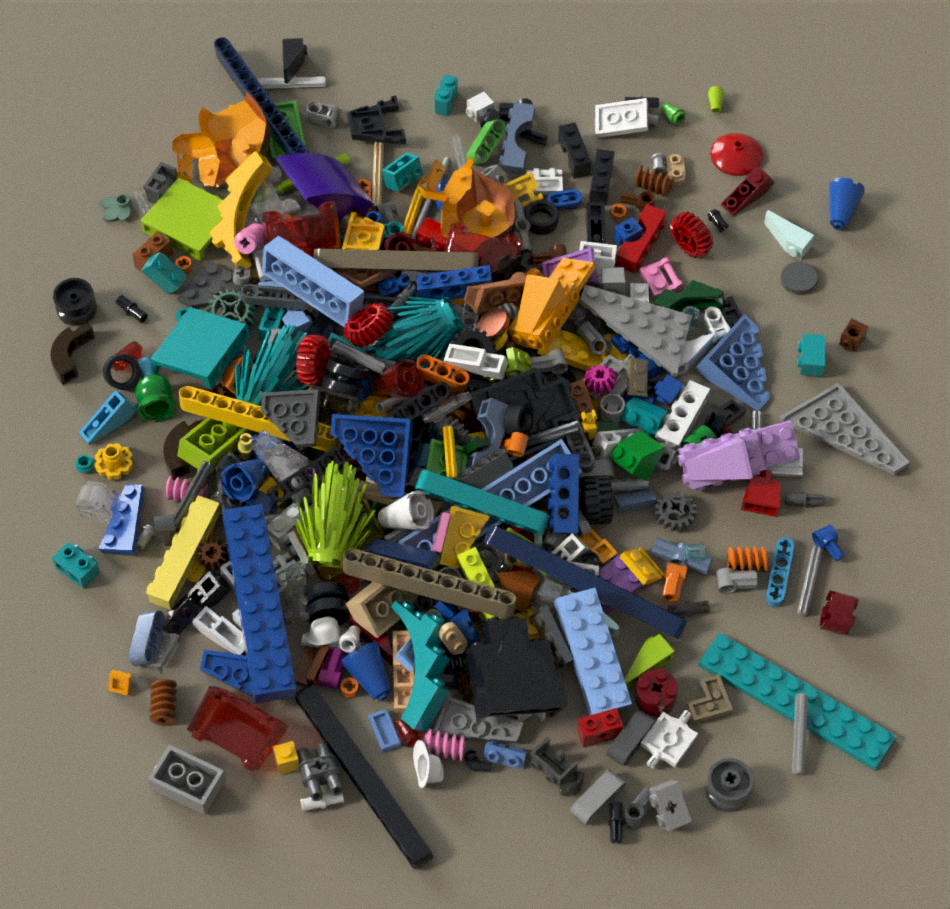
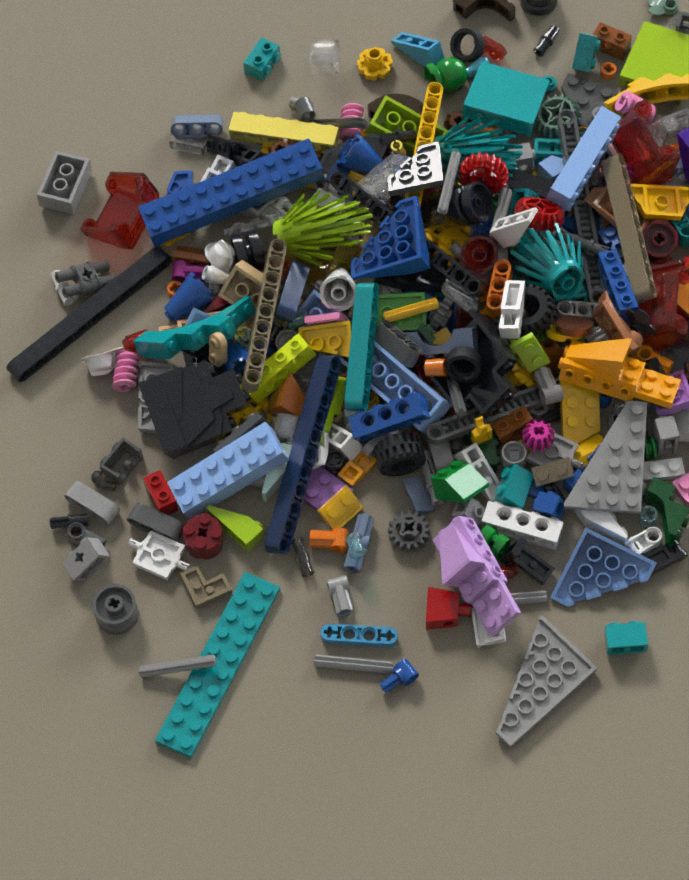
camera: 85 degrees right, 5 degrees up
(84, 459) = (368, 39): teal plate -> none
(119, 682) = (153, 116): light orange tile -> none
(122, 528) = (315, 85): wing -> none
(162, 702) = (137, 150): dark orange piece -> none
(233, 437) = (403, 136): none -> black axle
(286, 757) = (96, 250): yellow brick -> none
(322, 385) = (449, 182): none -> light grey axle
(384, 730) = (142, 321): medium blue tile -> none
(389, 337) = (511, 228): none -> white slope
(475, 764) = (114, 400): black arm -> none
(499, 754) = (126, 415): medium blue hinge -> none
(594, 338) = (588, 432): dark grey piece -> none
(747, 558) = (364, 602): orange piece -> none
(803, 499) = (448, 649): dark grey axle -> none
(838, 613) = (313, 687): dark red brick -> none
(855, 329) = (663, 686): reddish brown brick -> none

